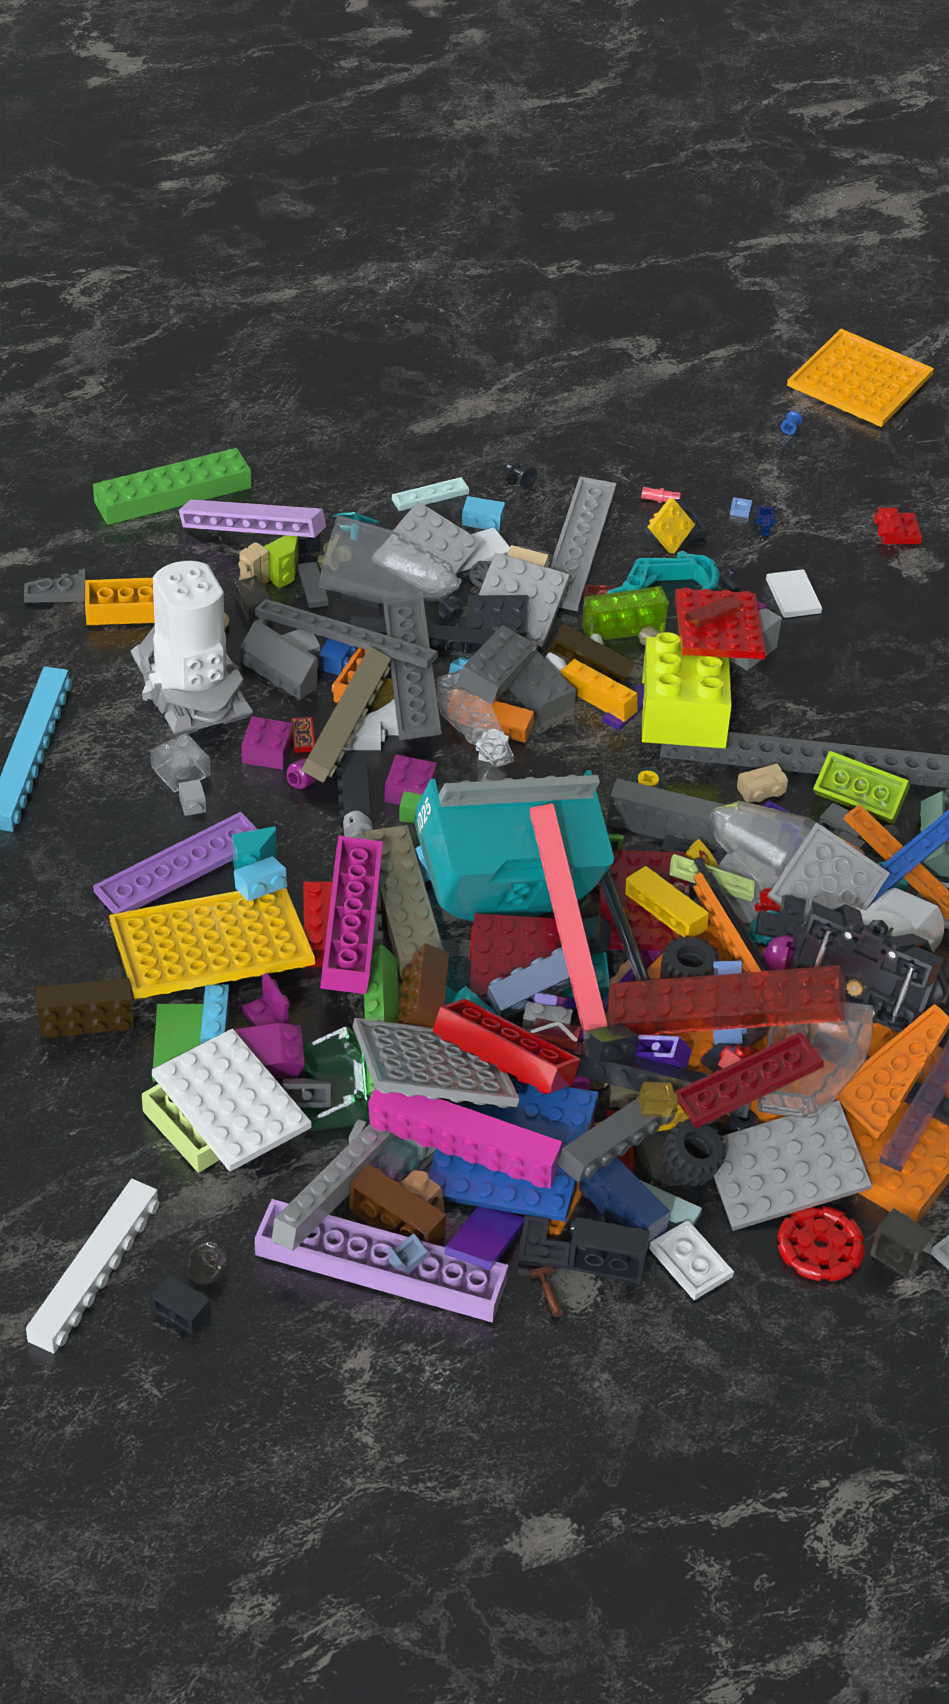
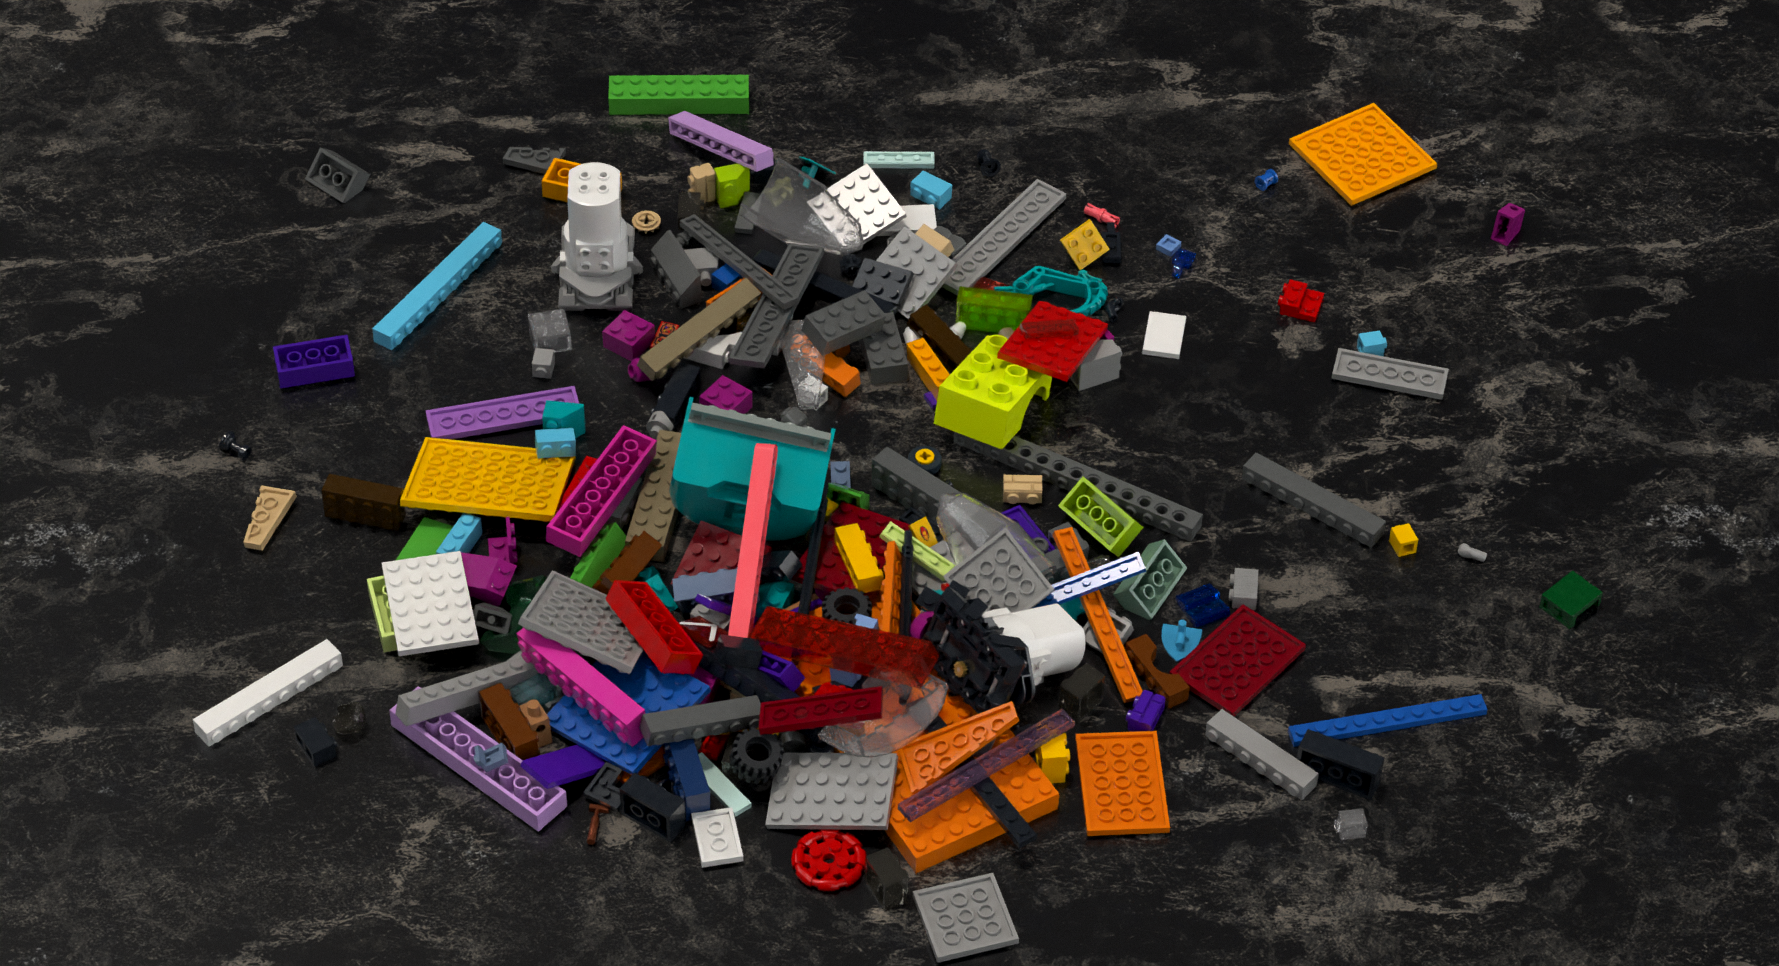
camera: 25 degrees right, 0 degrees up
(657, 1099) = (744, 703): clear yellow brick -> none

